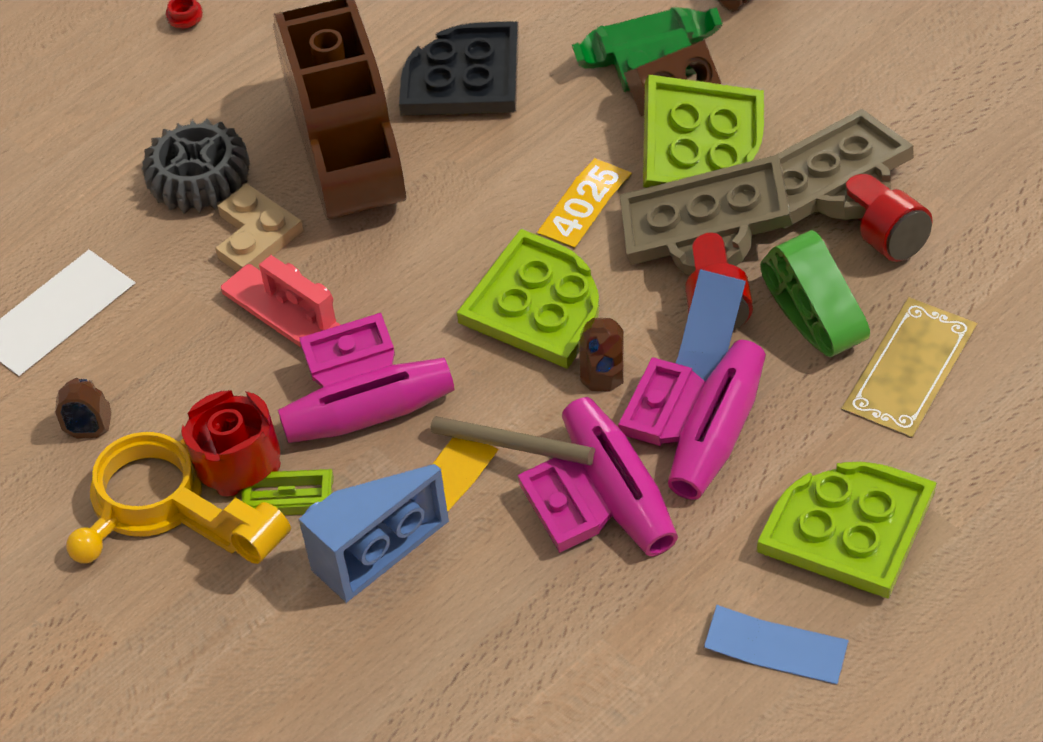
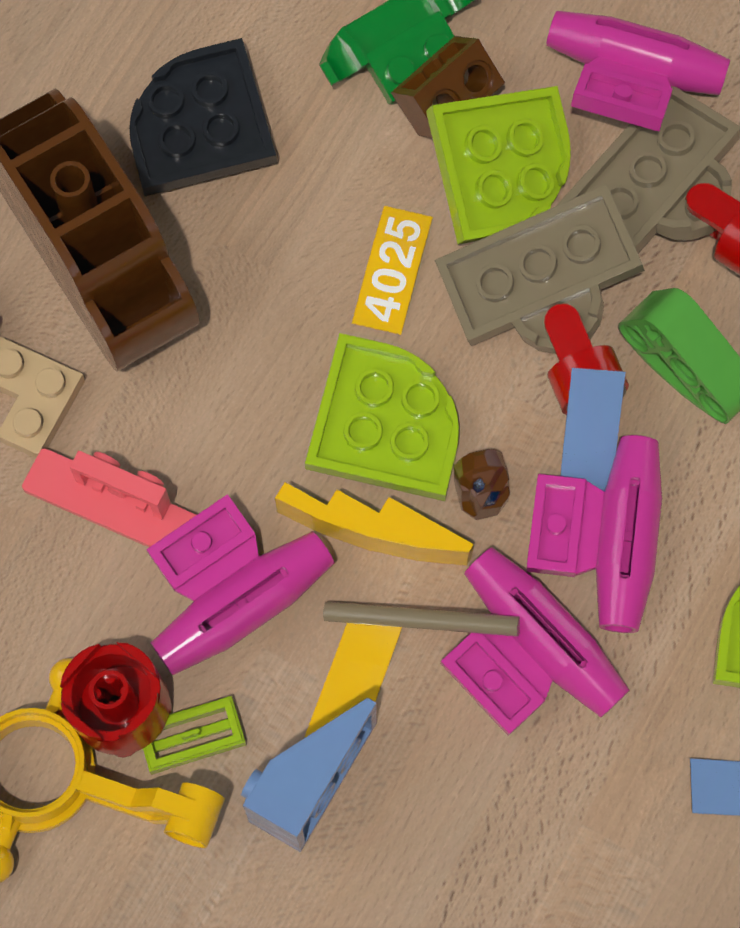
camera: 20 degrees left, 20 degrees up
(506, 374) = (391, 531): none -> yellow slope
(835, 90) = (632, 66): none -> dark pink plate

